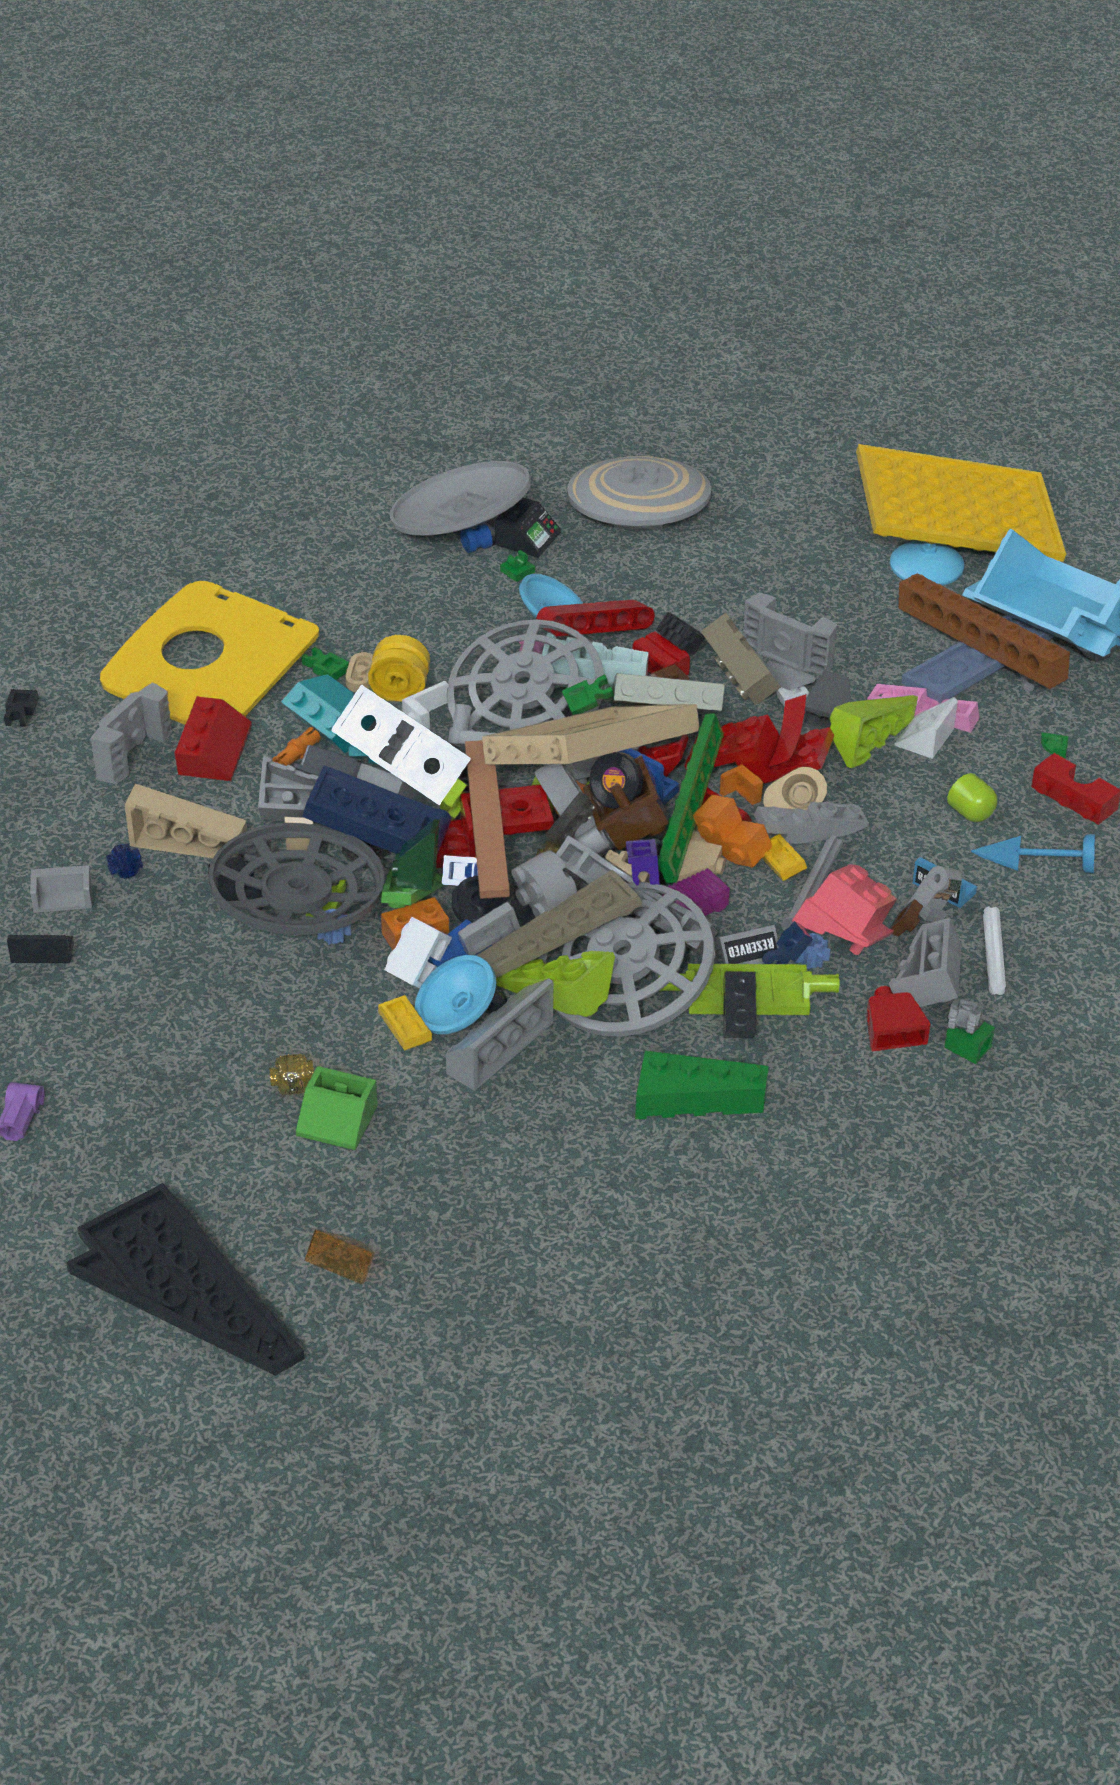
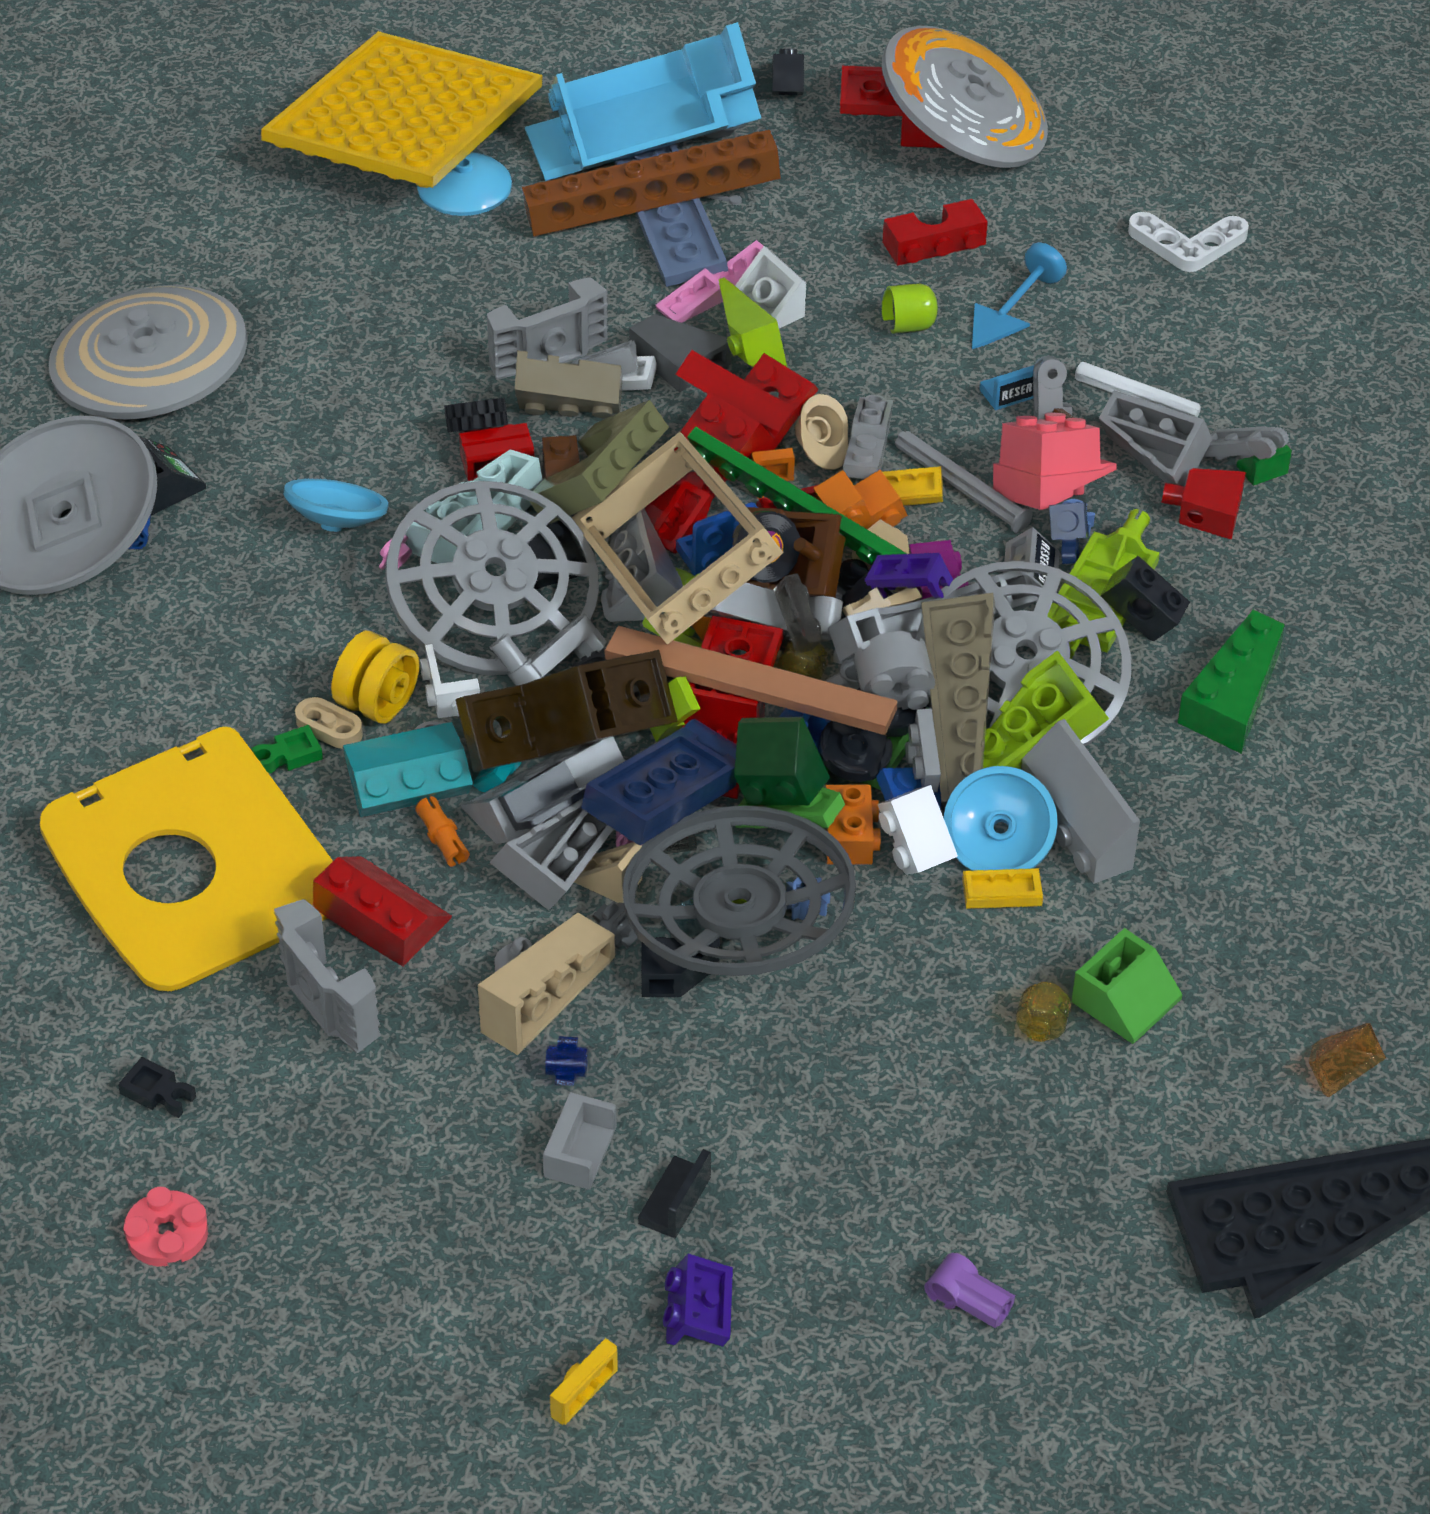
camera: 65 degrees left, 5 degrees up
(517, 566) = (214, 511): green tile -> none
(583, 696) = (574, 525): green plate -> none
(599, 616) = (399, 470): red beam -> none
(1055, 743) = (844, 218): green tile -> none

